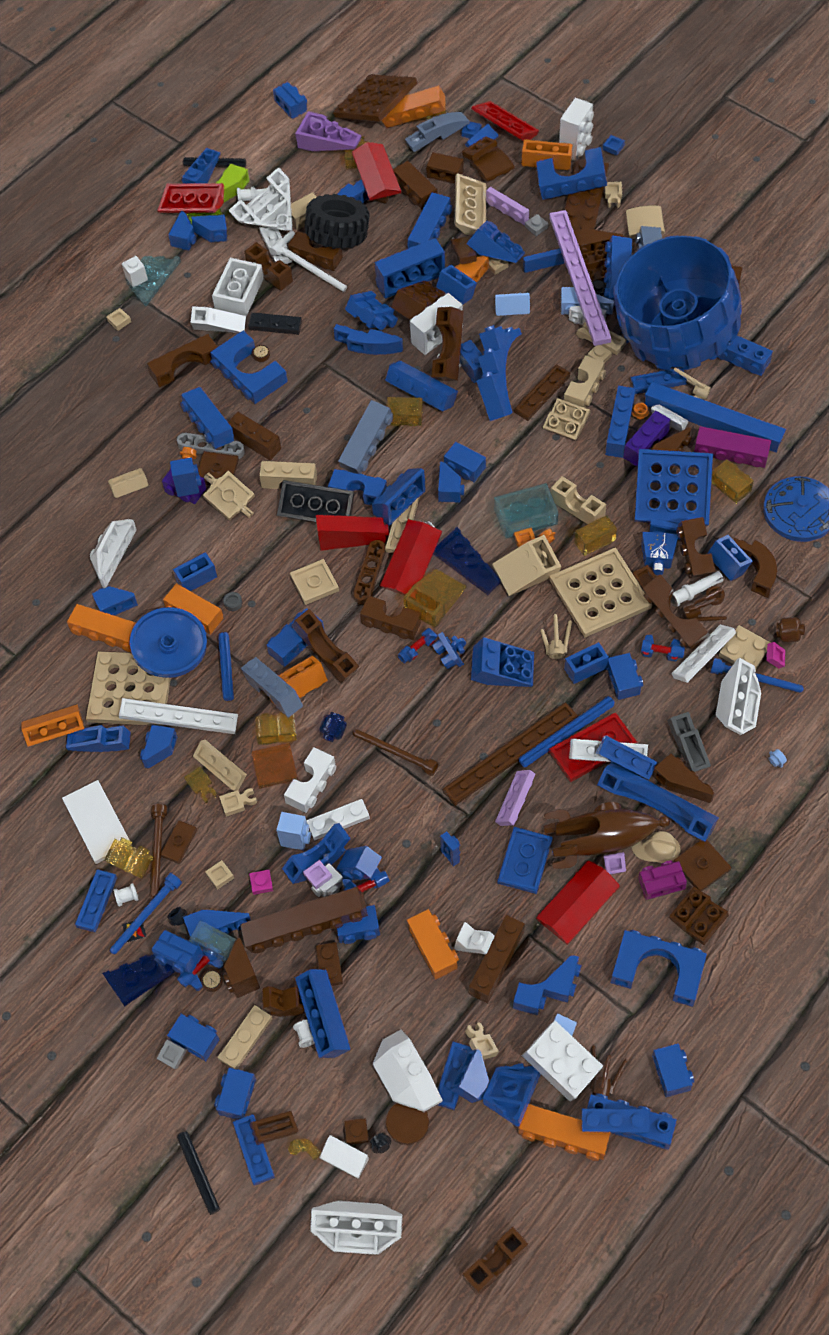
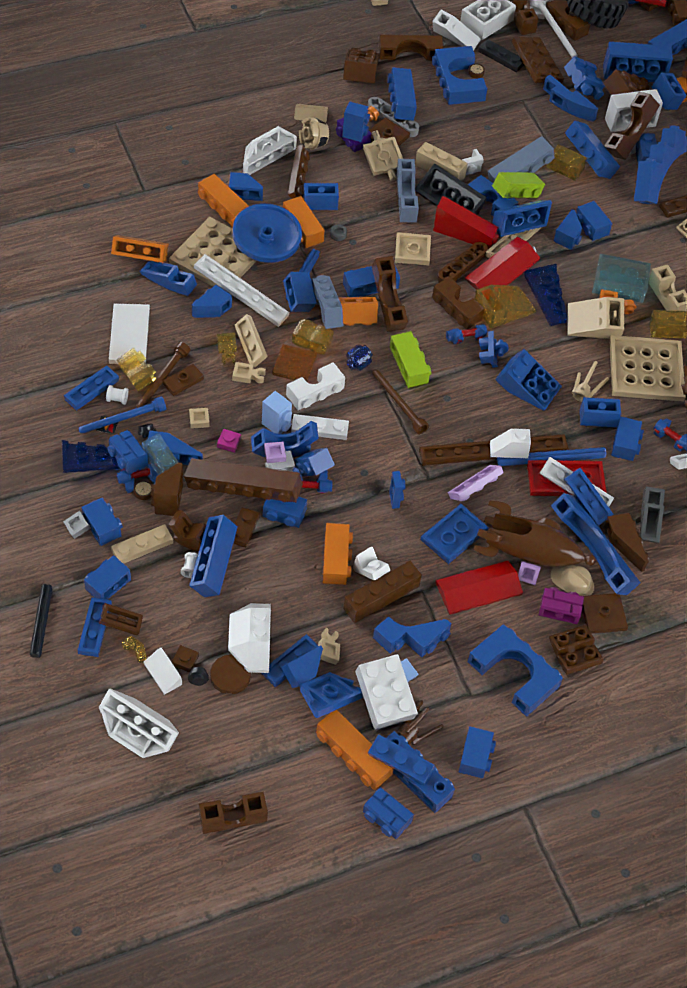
camera: 20 degrees right, 5 degrees down
(147, 405) = (361, 65): none -> reddish brown slope
(147, 507) = (314, 133): none -> tan cone
(157, 558) = (298, 172): none -> reddish brown plate
(236, 688) = (299, 291): none -> blue brick
(255, 436) = (432, 124): reddish brown brick -> none
(280, 534) = (406, 190): none -> sand blue arch
(312, 311) = (536, 58): none -> reddish brown plate
(319, 456) = (474, 162): none -> white bracket
(376, 462) = (518, 185): none -> lime brick
(381, 702) = (410, 359): none -> lime brick
(526, 742) = (511, 444): none -> white slope
(630, 1177) = (387, 813): none -> blue brick

